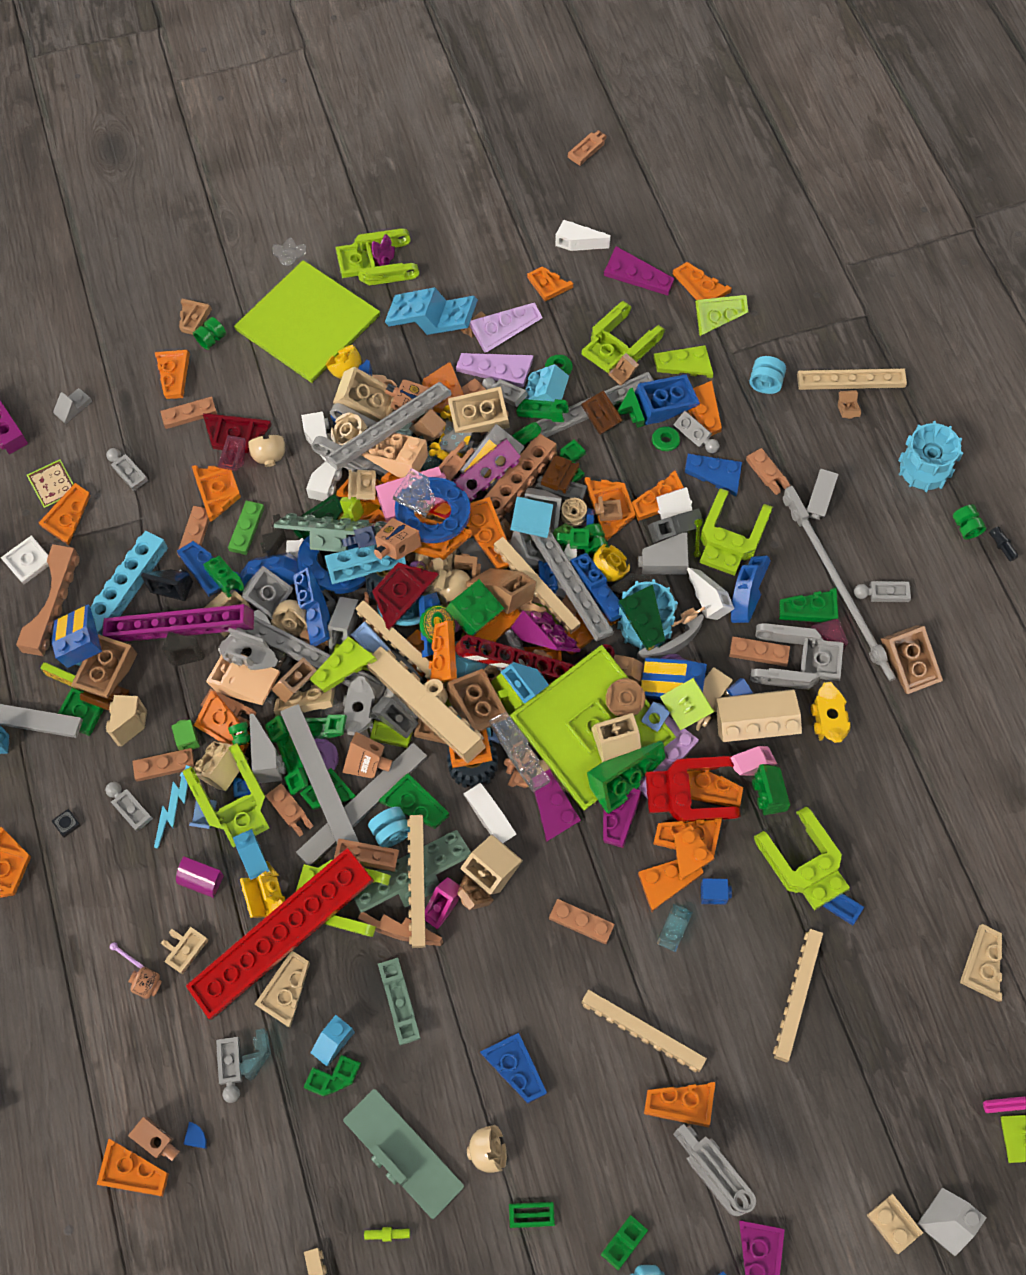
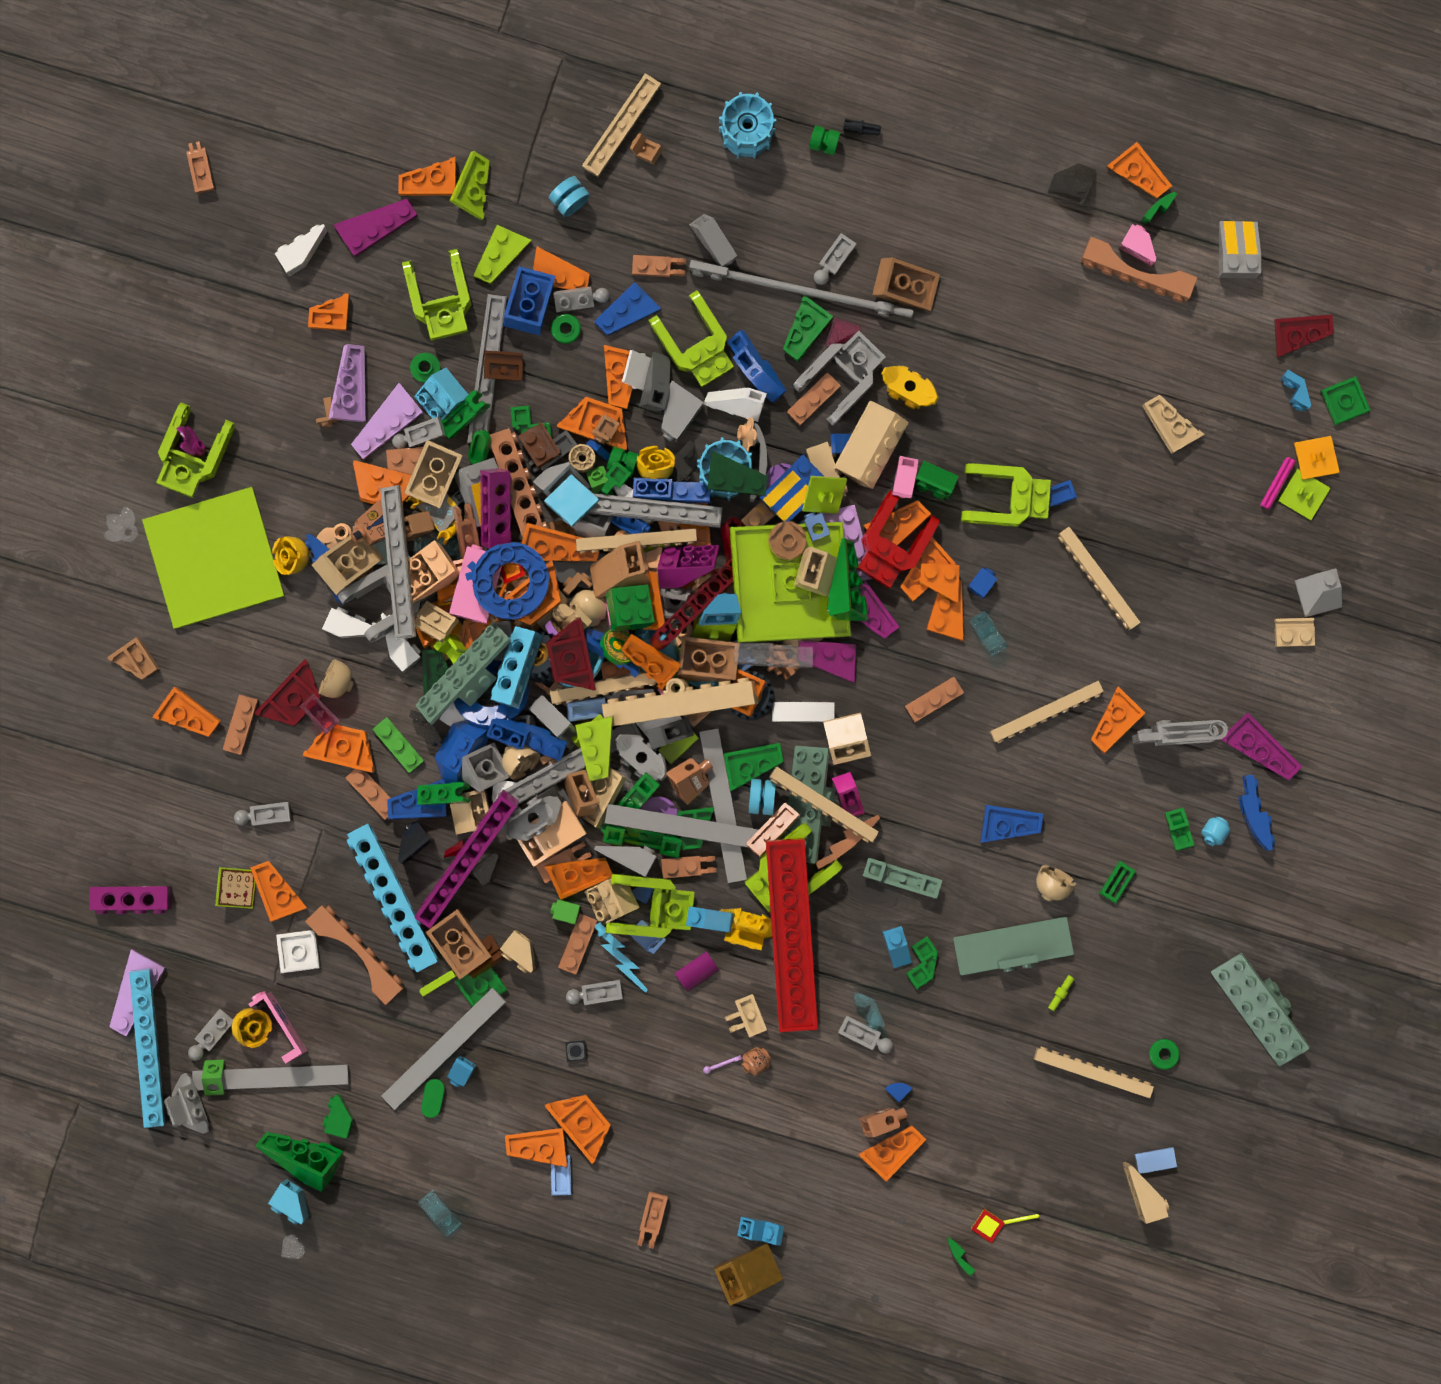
camera: 60 degrees left, 20 degrees up
(70, 406) = (158, 825): light grey slope -> none
(75, 637) = (416, 950): blue slope -> none
(209, 333) = (168, 656): green wheel -> none
(242, 738) = (602, 867): green wheel -> none
(284, 989) = (833, 958): tan wing -> none
(347, 427) = (374, 600): tan cylinder -> none
(363, 537) = (499, 656): dark blue plate -> none
(396, 540) = (523, 631): nougat torso -> none
(415, 493) = (488, 585): clear plate -> none
(431, 311) = (290, 442): dark azure bracket -> none
(472, 894) = (859, 769): medium nougat wing -> none
(624, 369) = (474, 316): medium nougat bracket -> none
(631, 404) = (512, 335): green slope -> none
(698, 523) = (667, 363): clear neon green hinge -> none

